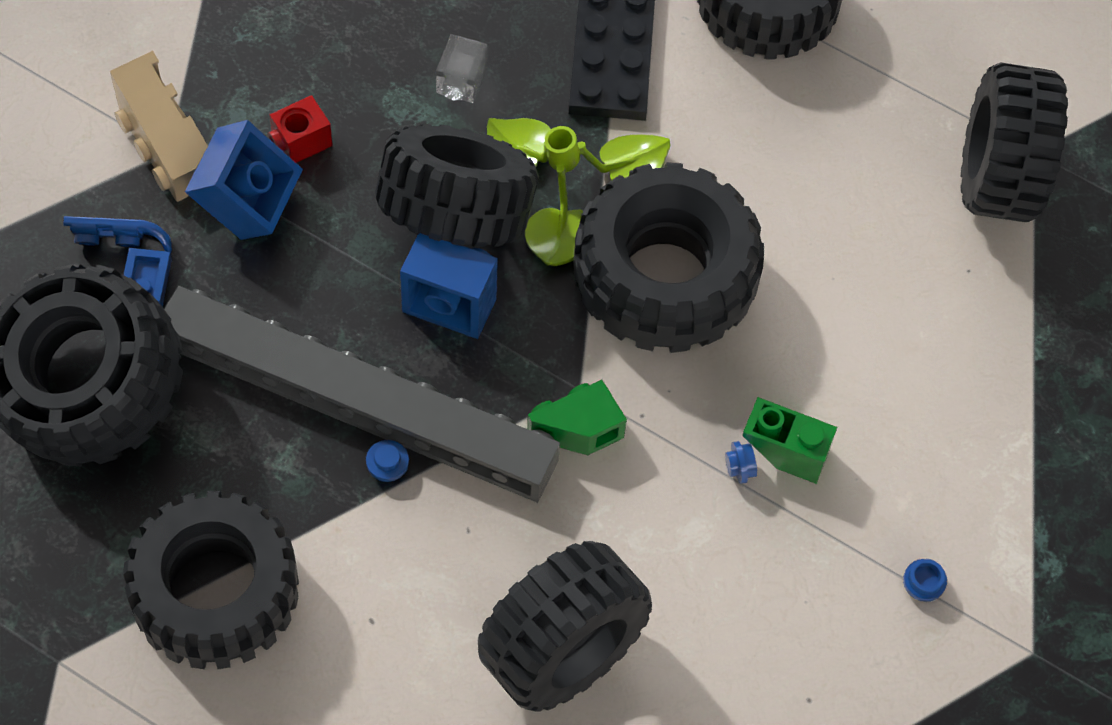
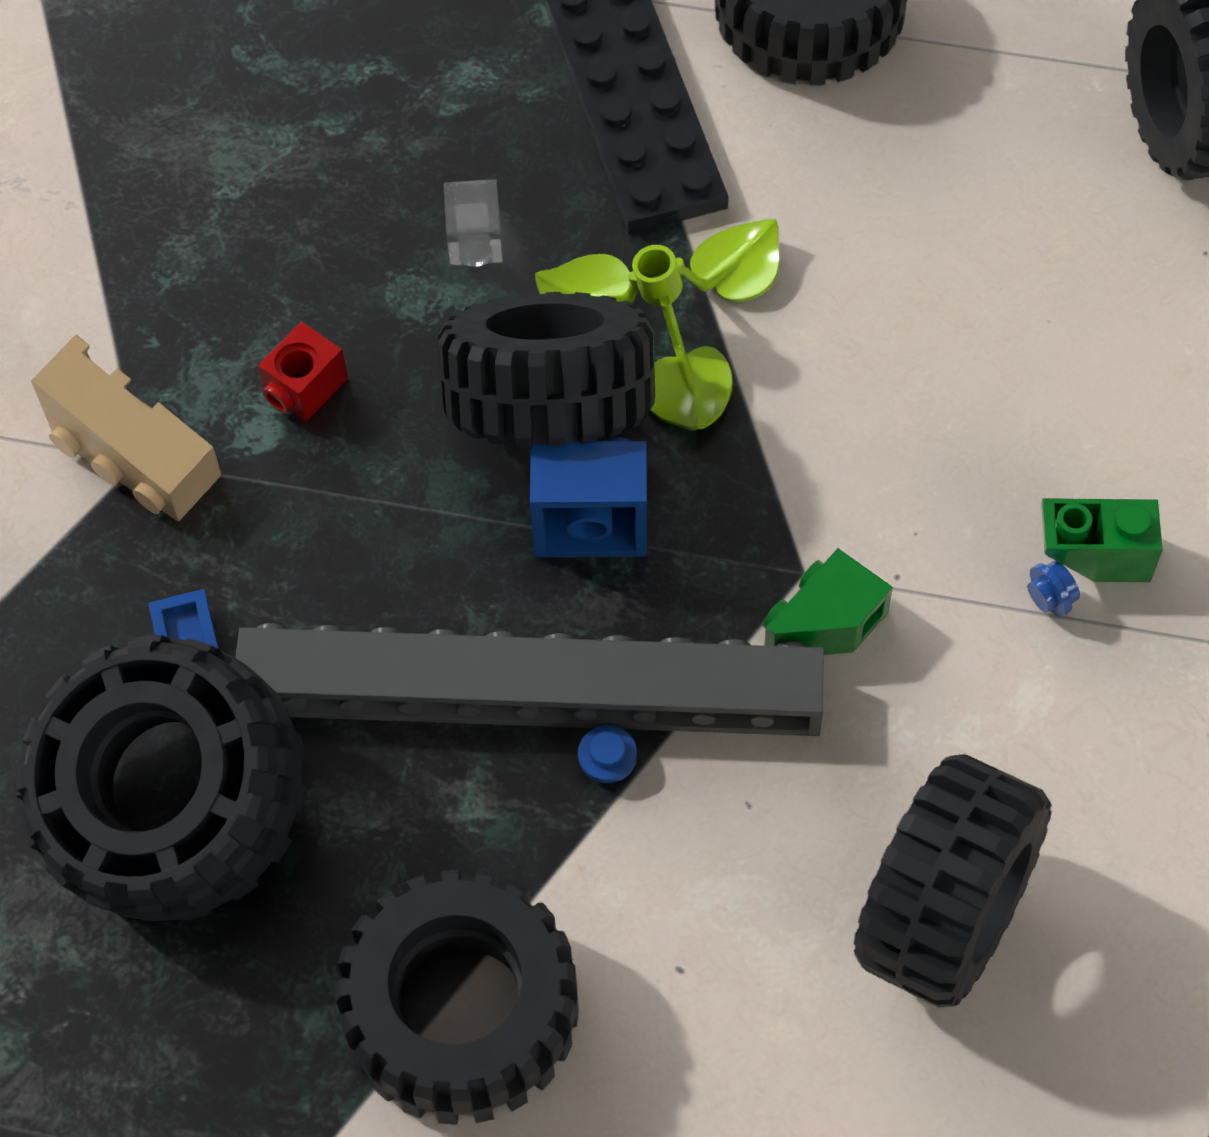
camera: 15 degrees left, 0 degrees up
(125, 231) = (133, 584): blue piece -> none
(244, 180) = (264, 460): blue brick -> none
(677, 210) = (859, 302): black tyre -> none

